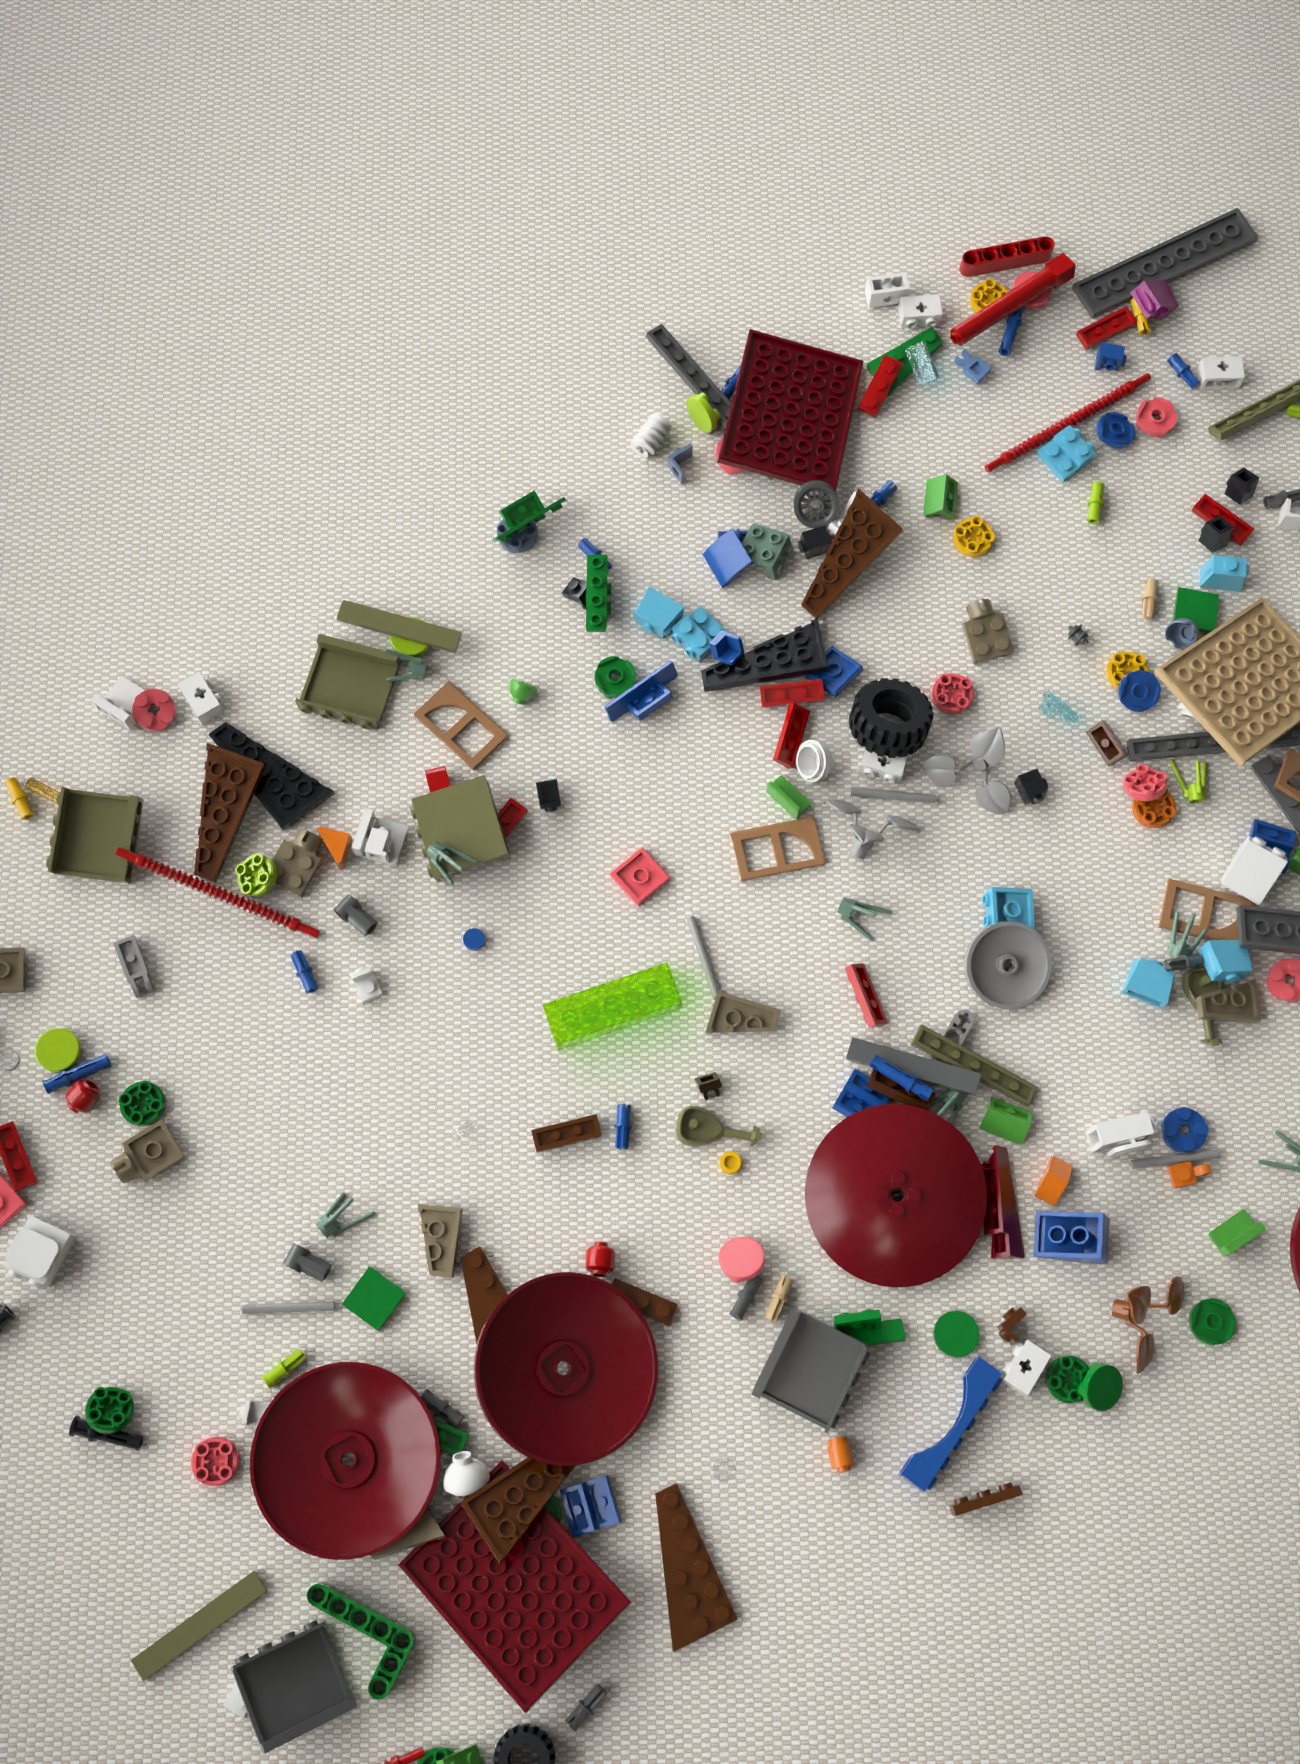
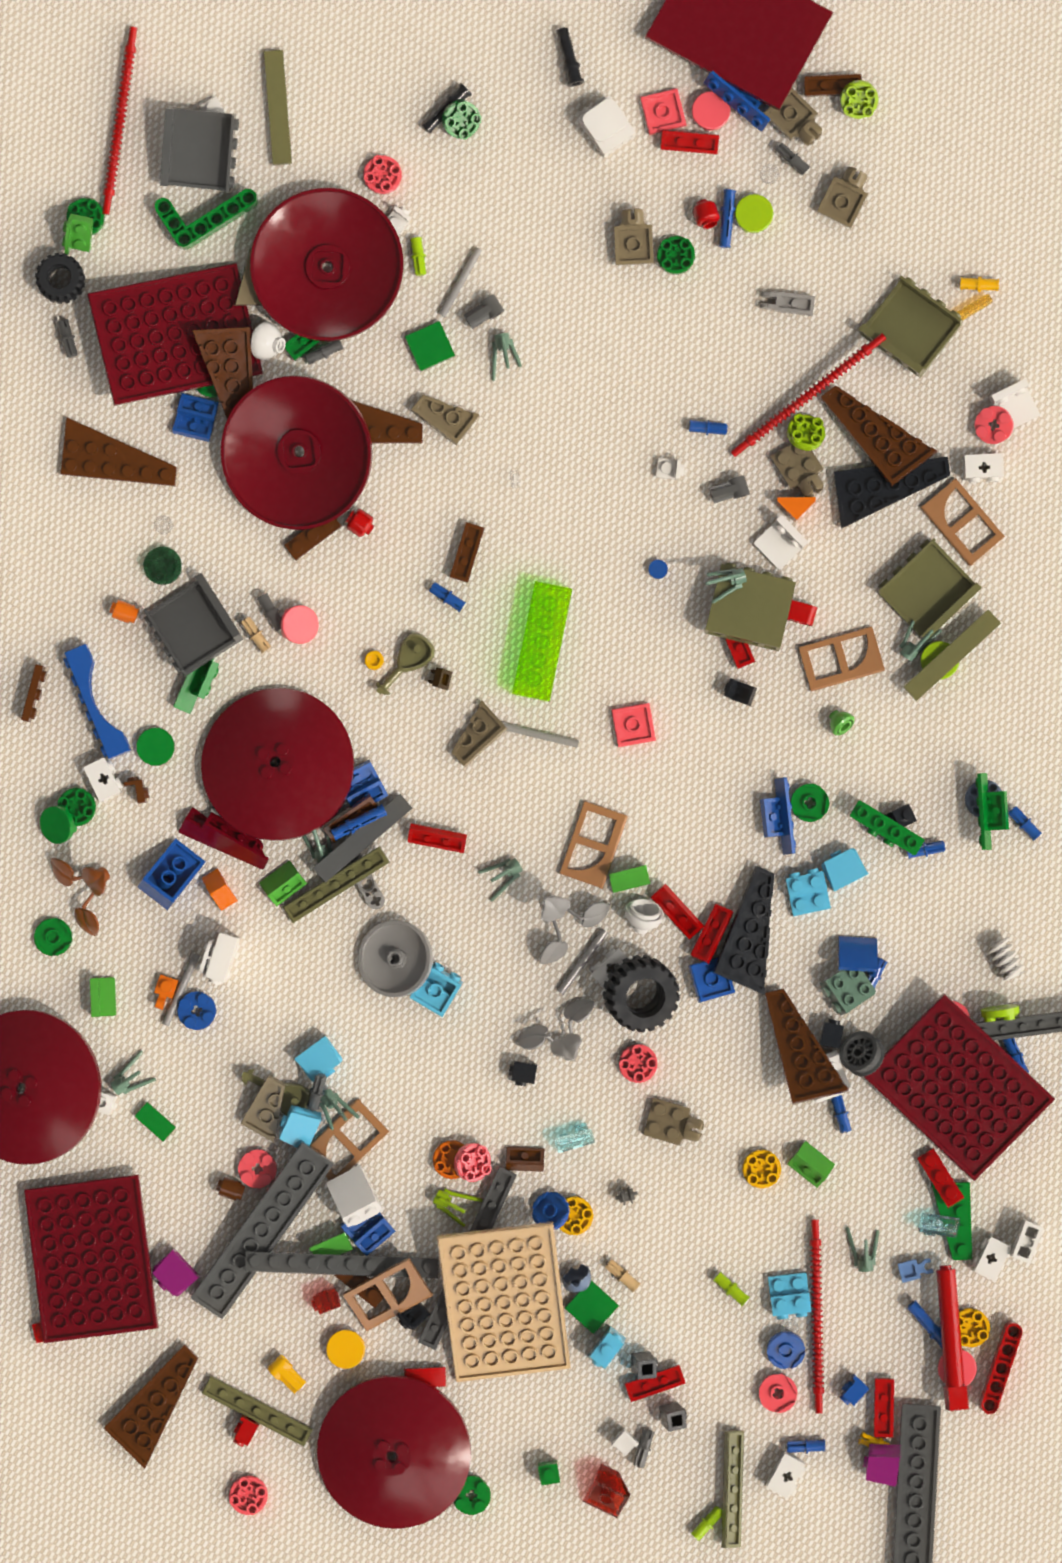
camera: 125 degrees right, 15 degrees up
(268, 719) = (936, 513): none -> medium nougat window
(379, 844) = (774, 538): white brick -> none
(518, 485) = (1024, 823): none -> blue axle
(678, 457) = (975, 970): sand blue bracket -> none
(726, 647) = (779, 904): blue panel -> none
(767, 1443) = (162, 565): none -> clear green tile
(993, 408) = (865, 1262): none -> sand green plant

